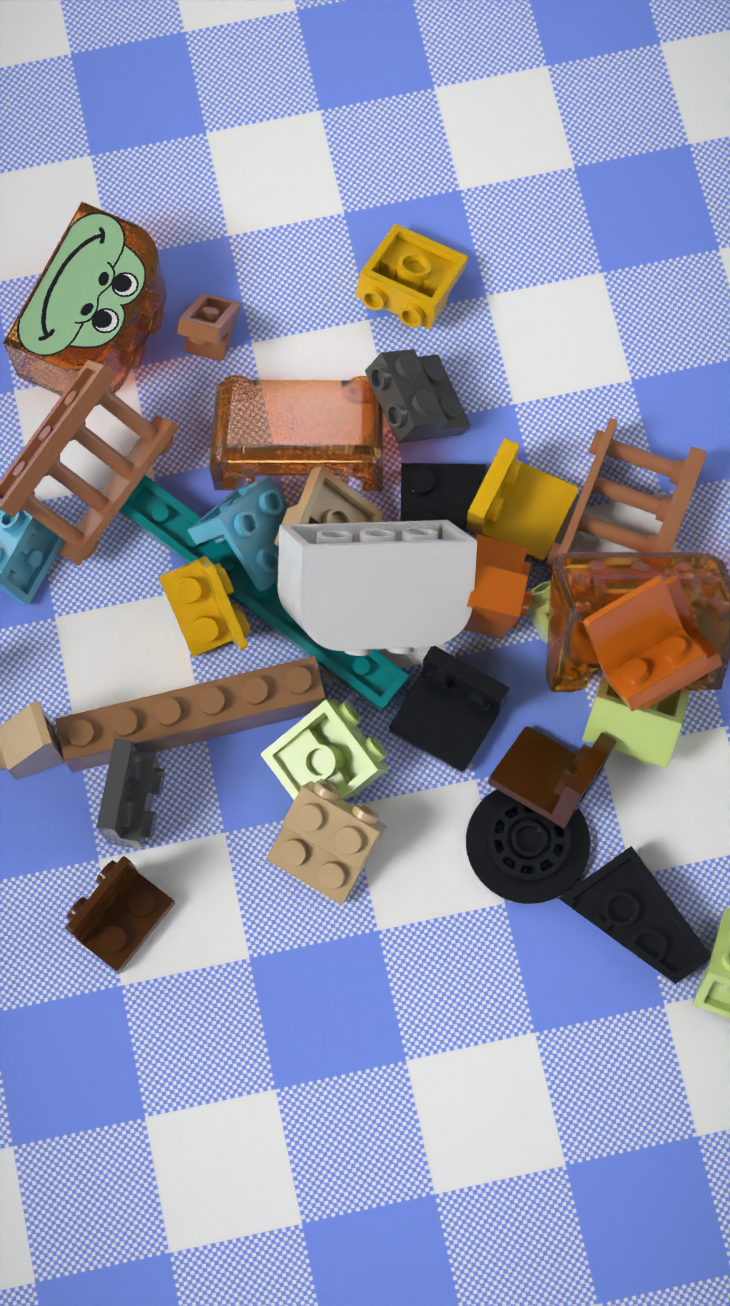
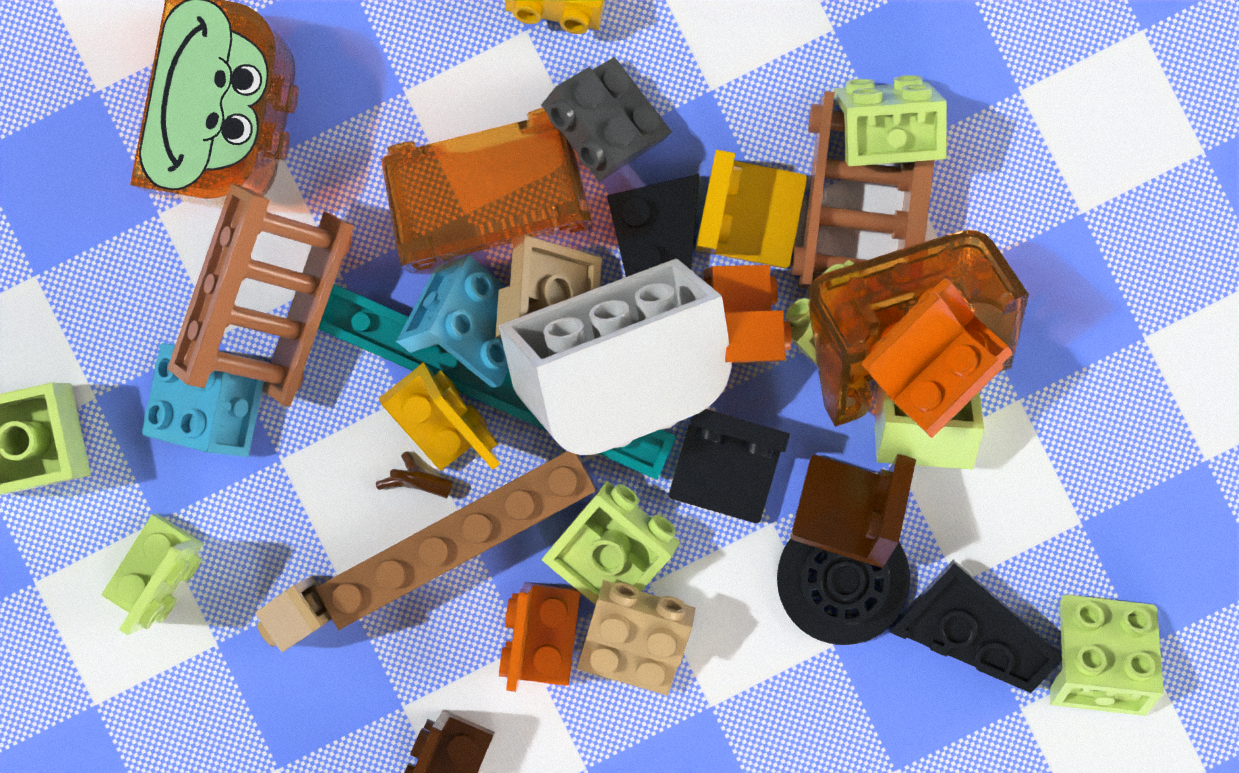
camera: 20 degrees left, 15 degrees up
(128, 796) = (417, 648): dark grey plate -> none
(169, 659) = (416, 479): none -> reddish brown bar
(209, 325) = (352, 84): nougat slope -> none
(240, 818) = (542, 635): none -> orange bracket
(662, 457) = (893, 121): none -> yellowish green bracket

